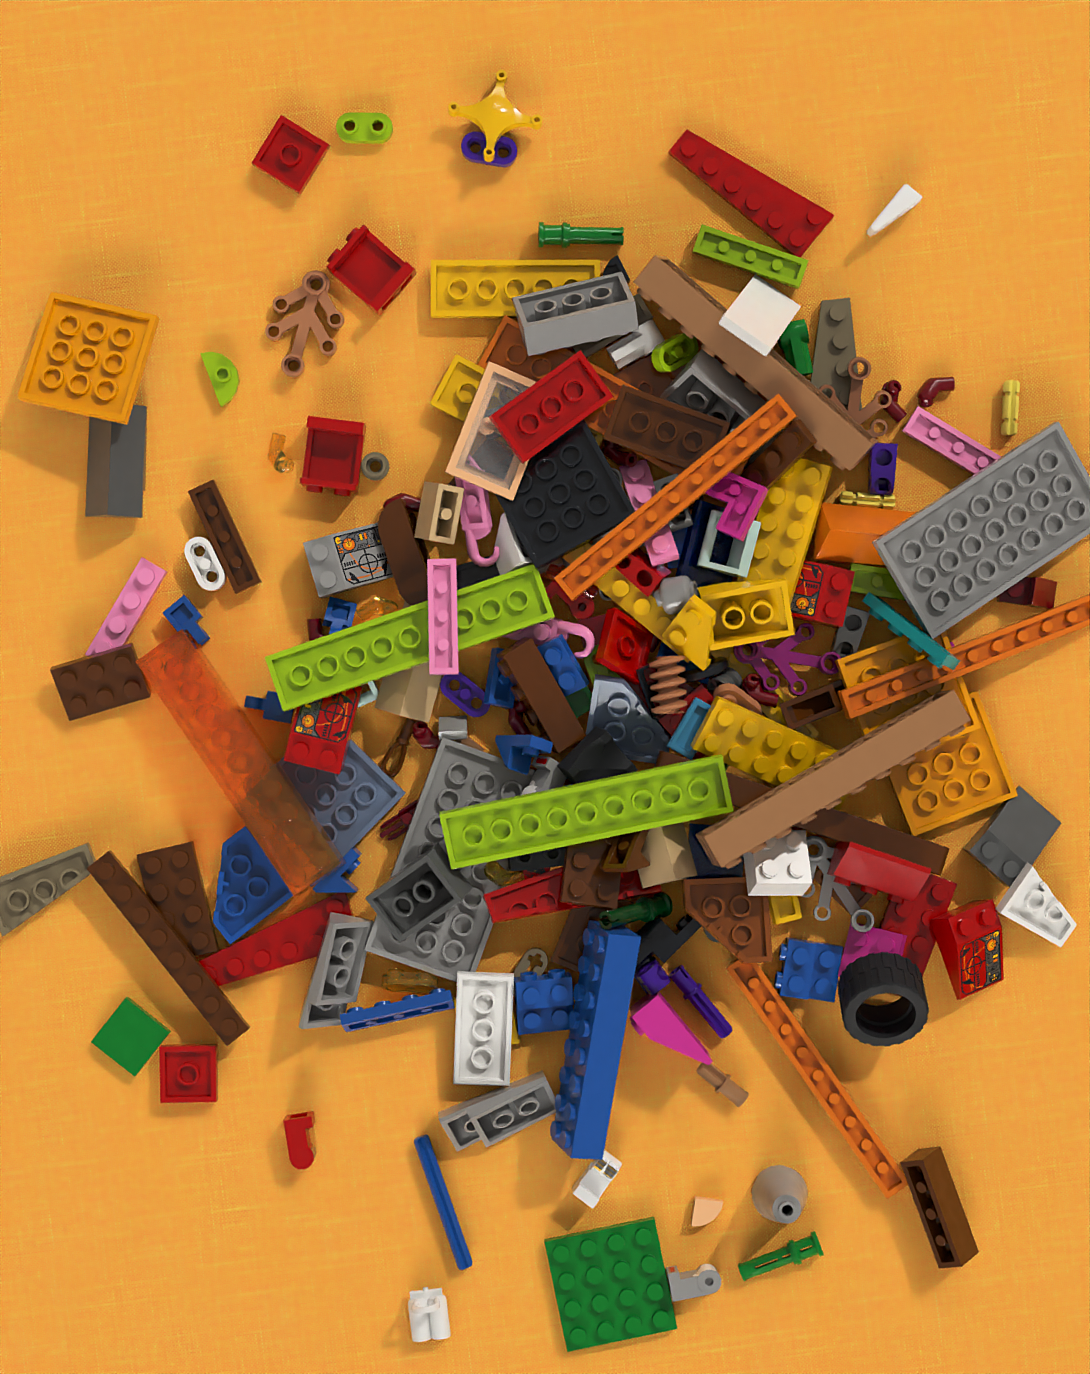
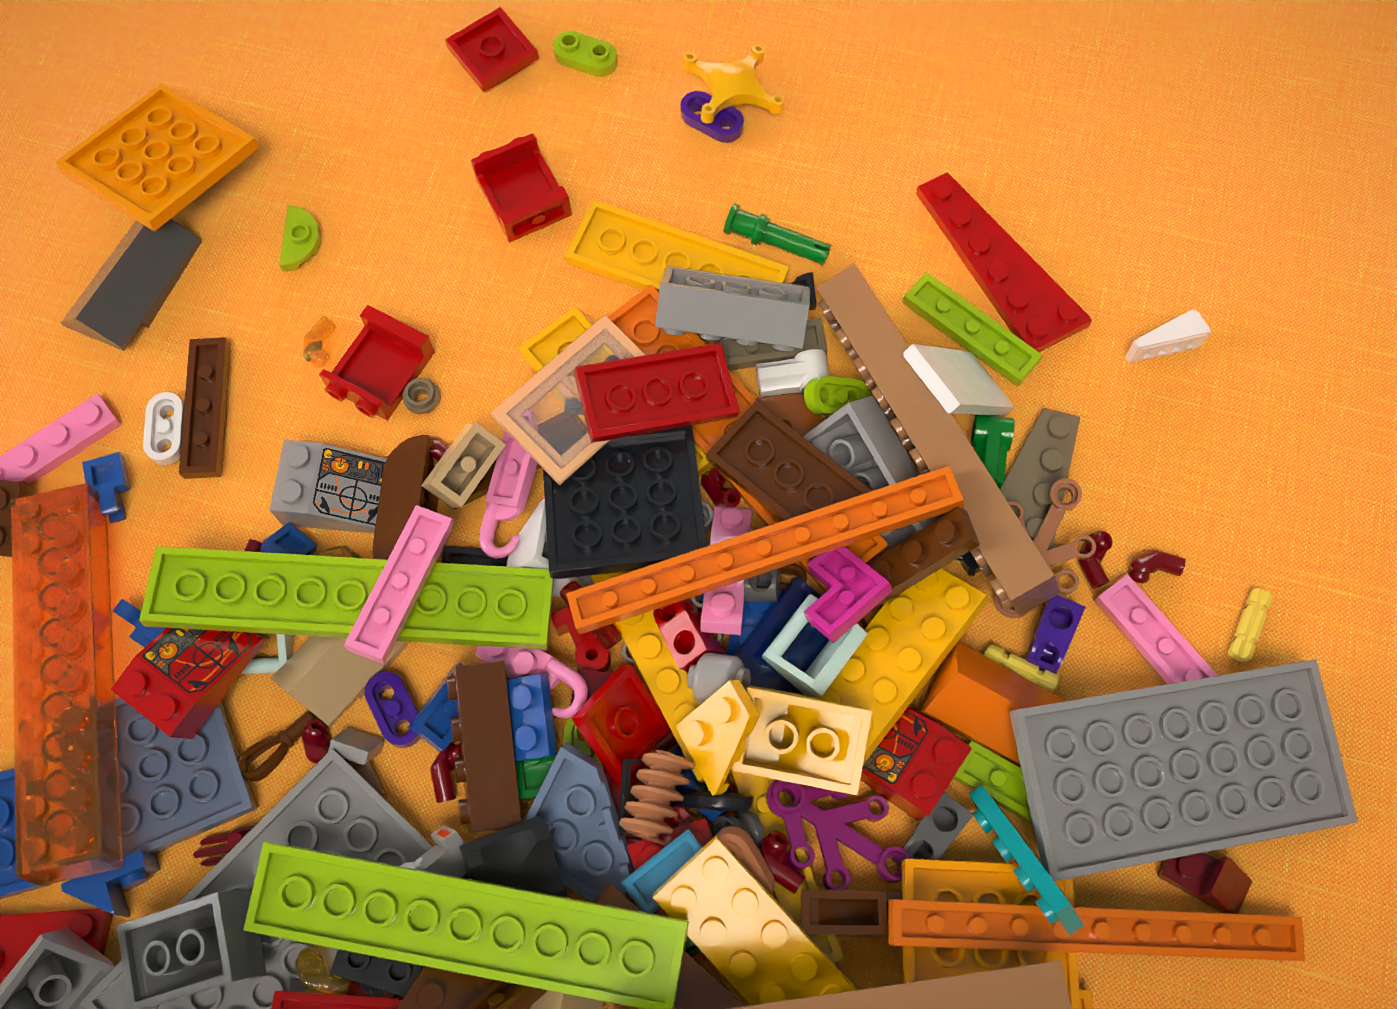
camera: 20 degrees right, 20 degrees down
(305, 318) = (421, 214): nougat plant -> none
(519, 750) = (423, 807): blue slope -> none

